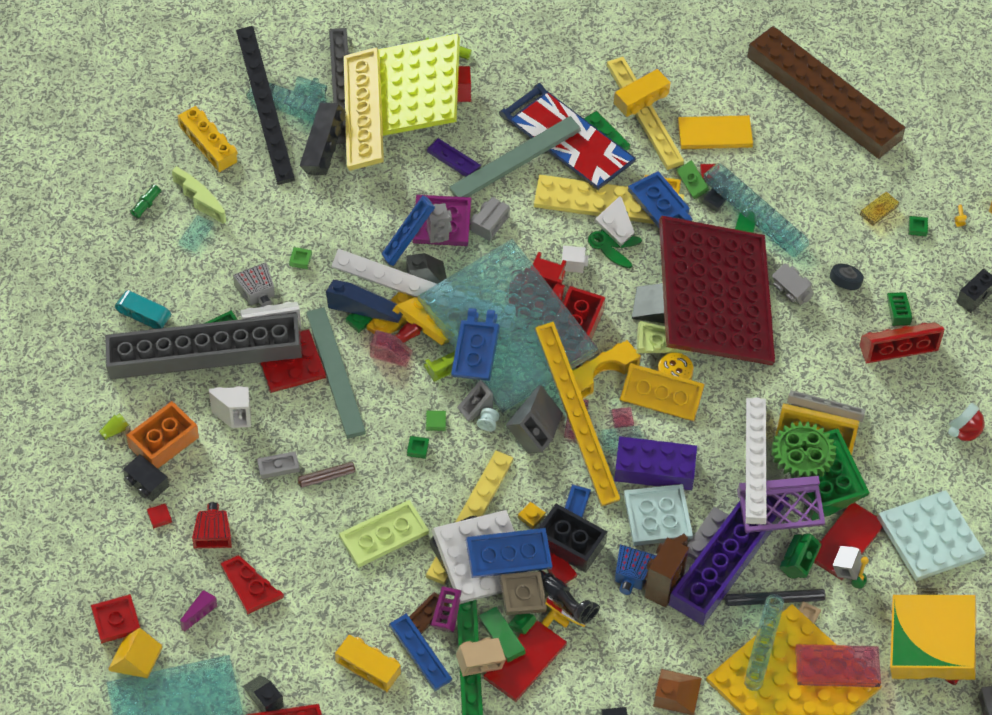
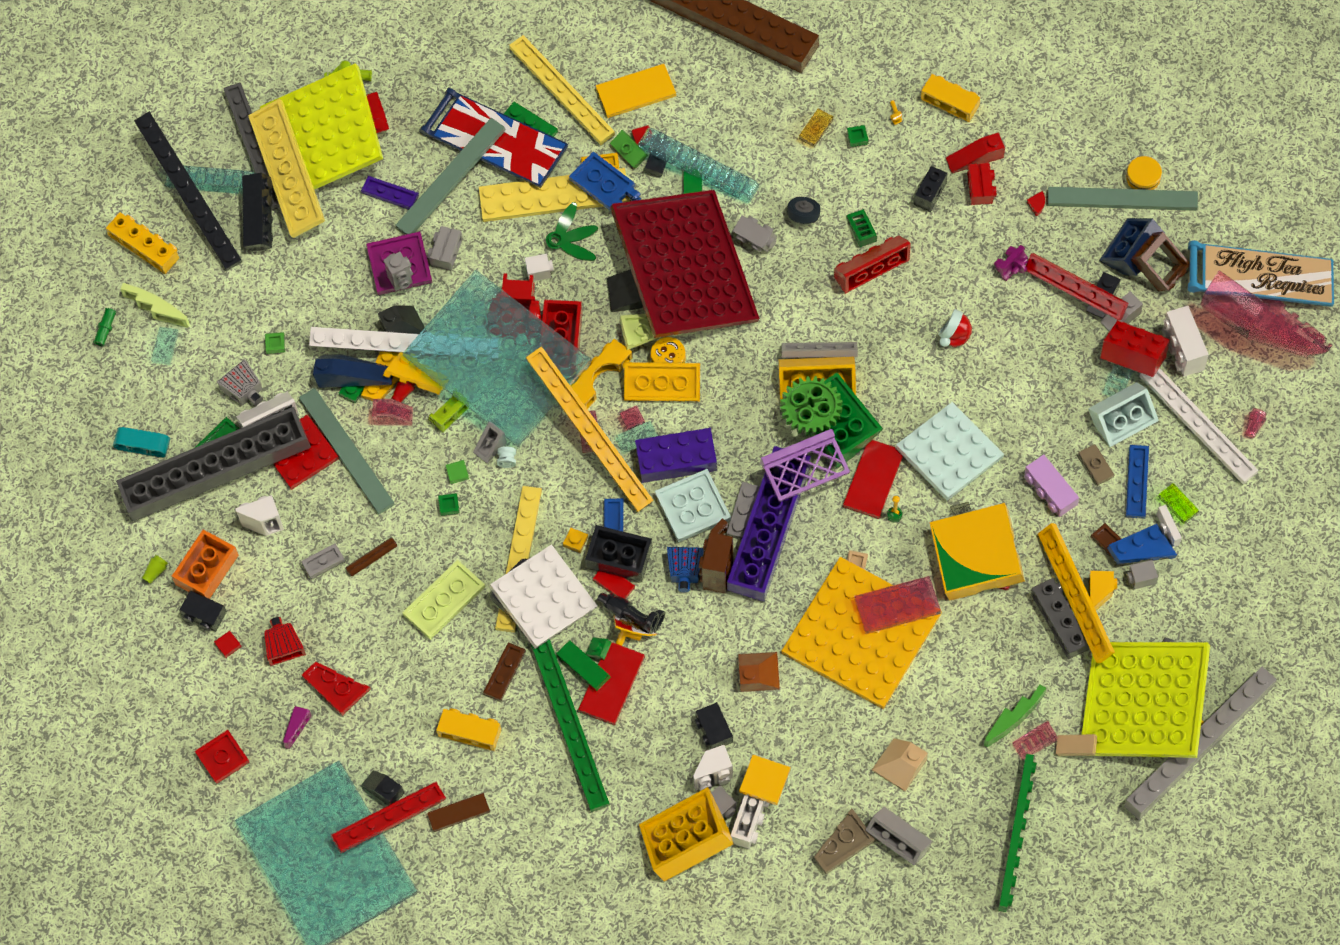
camera: 10 degrees left, 10 degrees up
(136, 654) = (253, 786): yellow slope -> none
(311, 88) = (227, 159): clear light blue hips -> none
(408, 230) = (371, 287): blue tile -> none
(420, 652) = (513, 705): blue tile -> none
(438, 614) = (518, 657): magenta slope -> none
(476, 346) = (474, 390): blue tile -> none
(480, 656) = (570, 694): tan brick -> none
(508, 553) = (567, 587): blue plate -> none
(523, 593) = (591, 621): dark tan plate -> none
(536, 421) = (552, 447): dark grey slope -> none
(616, 222) = (568, 217): white wing -> none
(642, 93) = (554, 71): yellow brick -> none
(755, 461) = (769, 429): white plate -> none
(761, 650) = (824, 594): clear light blue beam -> none
(788, 597) = (822, 554): black axle -> none
(800, 556) = (835, 508): green brick -> none
(848, 562) = (881, 502): brick -> none

